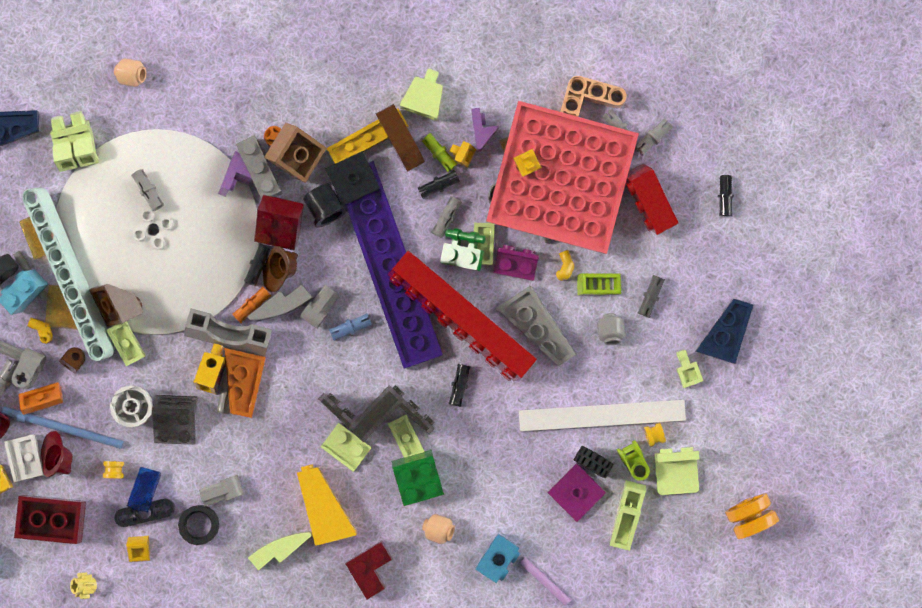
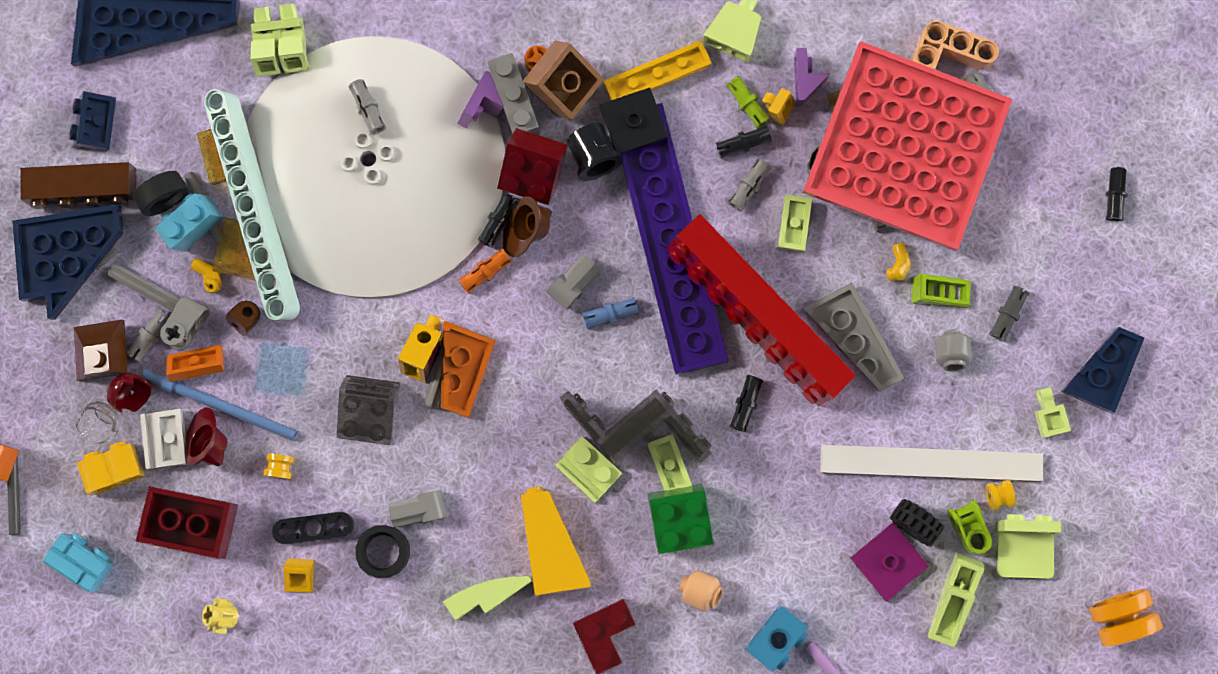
camera: 10 degrees right, 5 degrees down
(101, 393) = (281, 368): none -> clear light blue piece
(116, 304) = (308, 248): slope -> none
(126, 343) = (315, 302): yellowish green plate -> none
(131, 406) = (312, 384): white cylinder -> none
(144, 489) = (315, 497): clear blue plate -> none
(207, 328) = (476, 313): light grey arch -> none
(281, 305) = (523, 275): light grey slope -> none
(400, 137) = (700, 76): reddish brown slope -> none
(462, 256) = (764, 235): plate -> none
(516, 263) = (835, 252): magenta bracket -> none
(527, 163) = (864, 120): yellow tile -> none
(650, 199) = (1020, 187): red wedge -> none
(653, 137) = (1028, 110): light grey pin -> none

